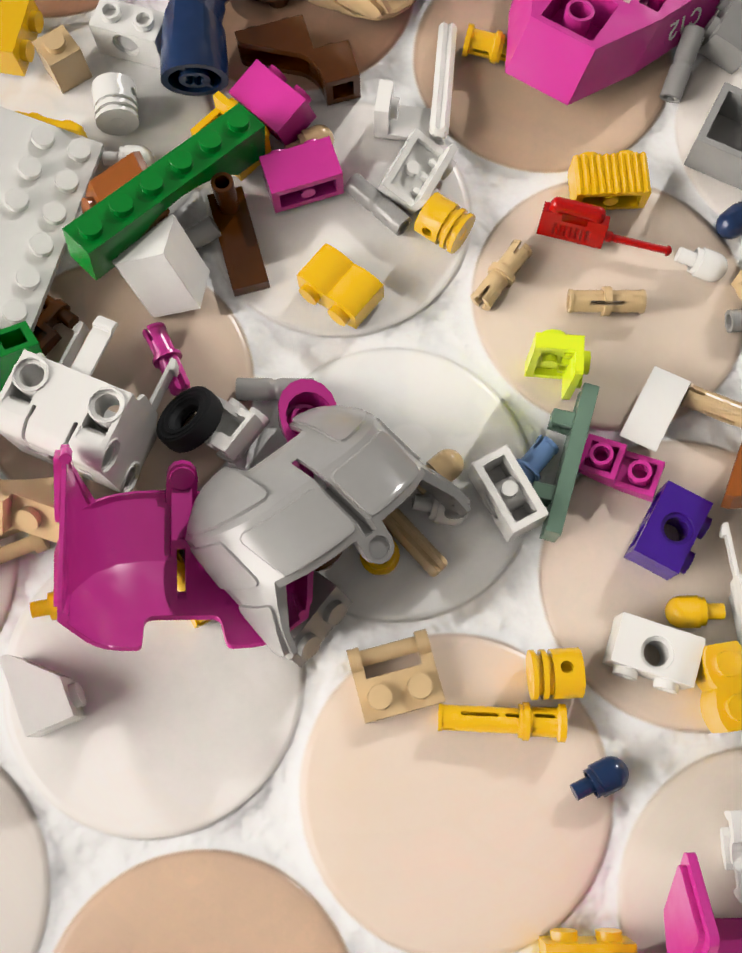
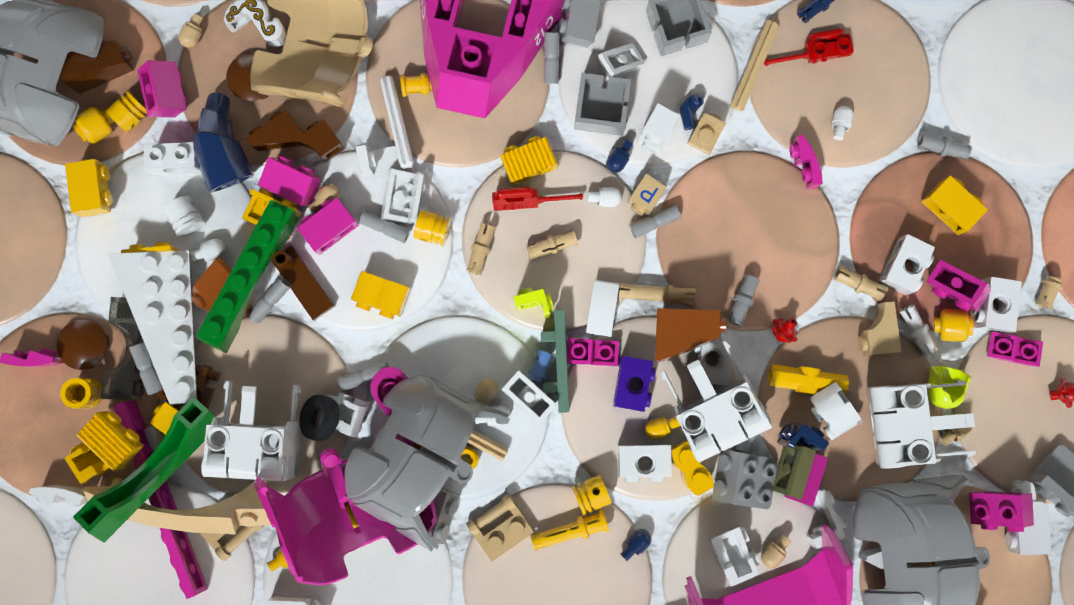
camera: 20 degrees left, 10 degrees up
(62, 58) = (133, 194): tan brick -> none
(163, 350) = (287, 379): dark pink axle -> none
(165, 270) = (266, 326): white slope -> none

